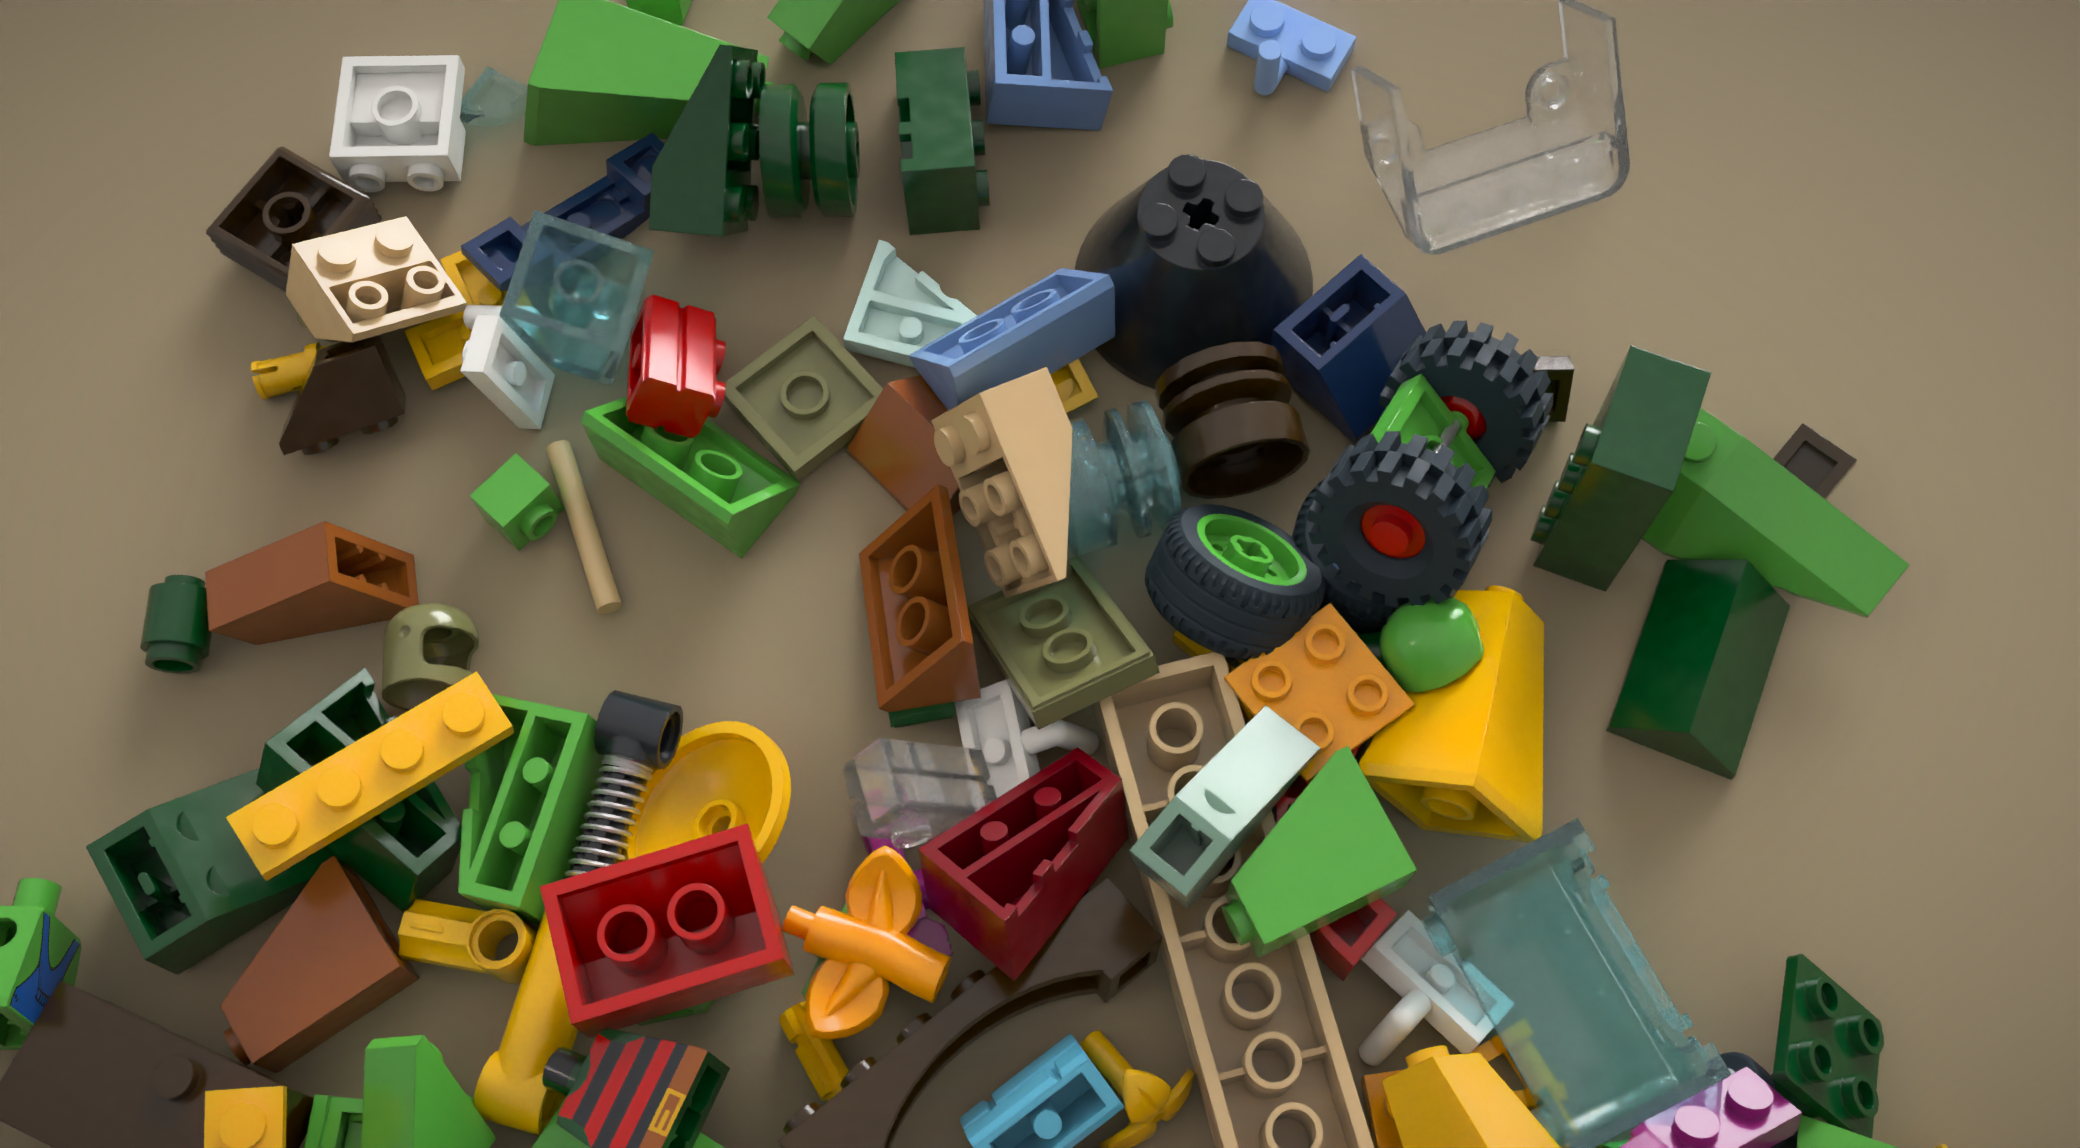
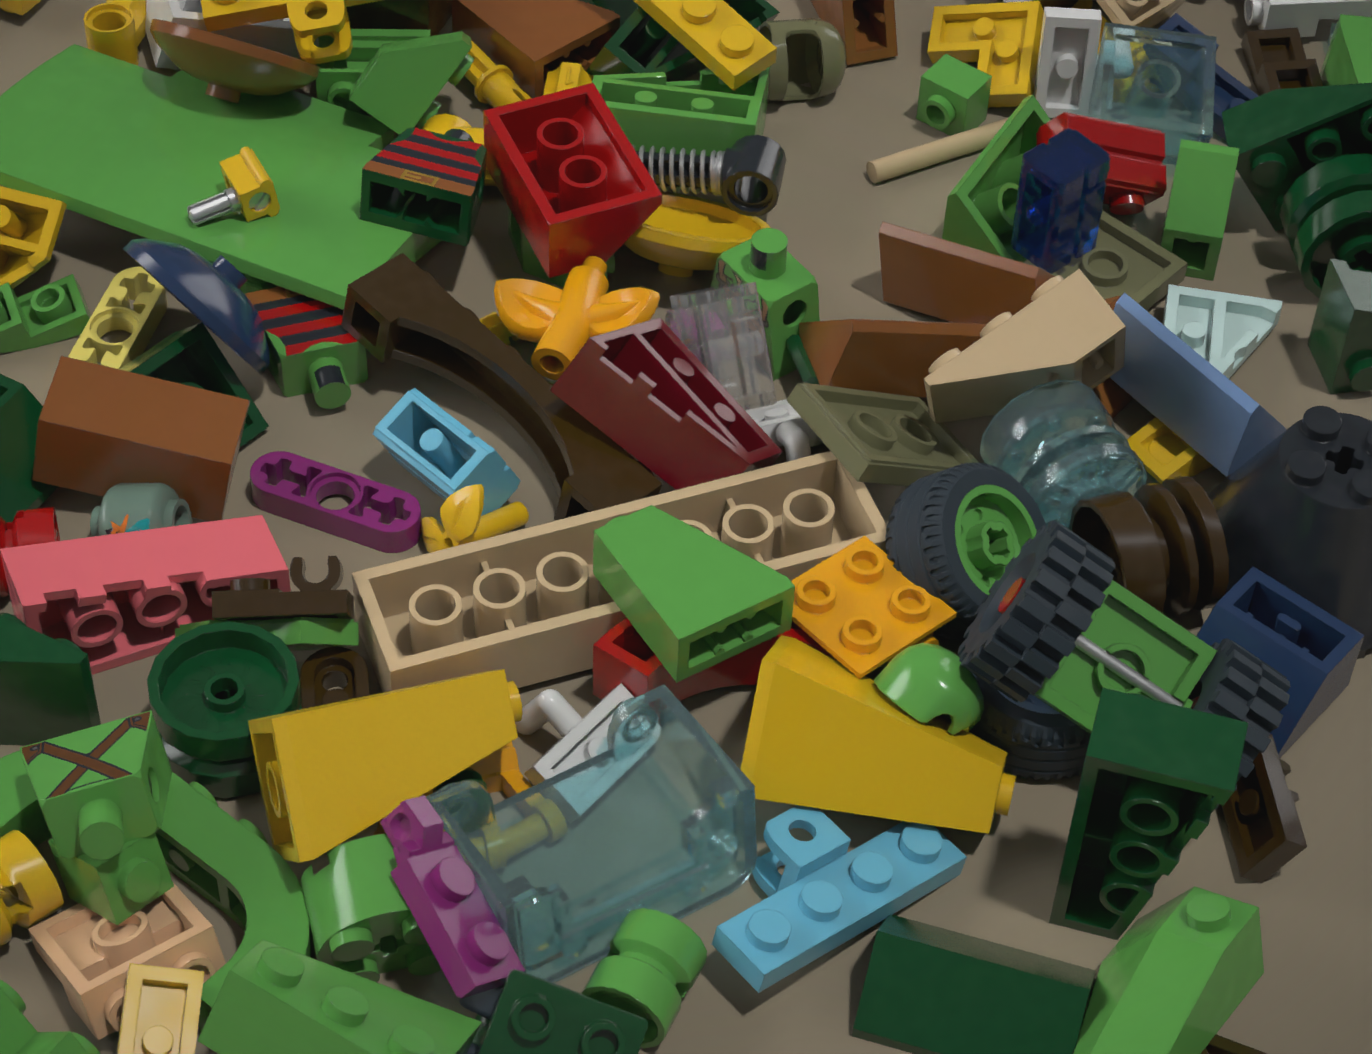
camera: 80 degrees right, 20 degrees down
(404, 1017) = (492, 82): none -> yellow axle
(431, 436) = (998, 37): none -> yellow plate
(508, 175) = (1278, 60): none -> dark brown slope
(754, 287) = (1199, 205): none -> bright green slope
(761, 409) = (1060, 200): none -> clear blue brick
(826, 735) = (783, 286): none -> bright green torso
(829, 520) = (952, 278): none -> dark orange slope
(1222, 806) = (723, 498): slope -> none
(1612, 771) = (828, 892): none -> medium azure plate
(1721, 961) = (649, 969): none -> bright green wheel

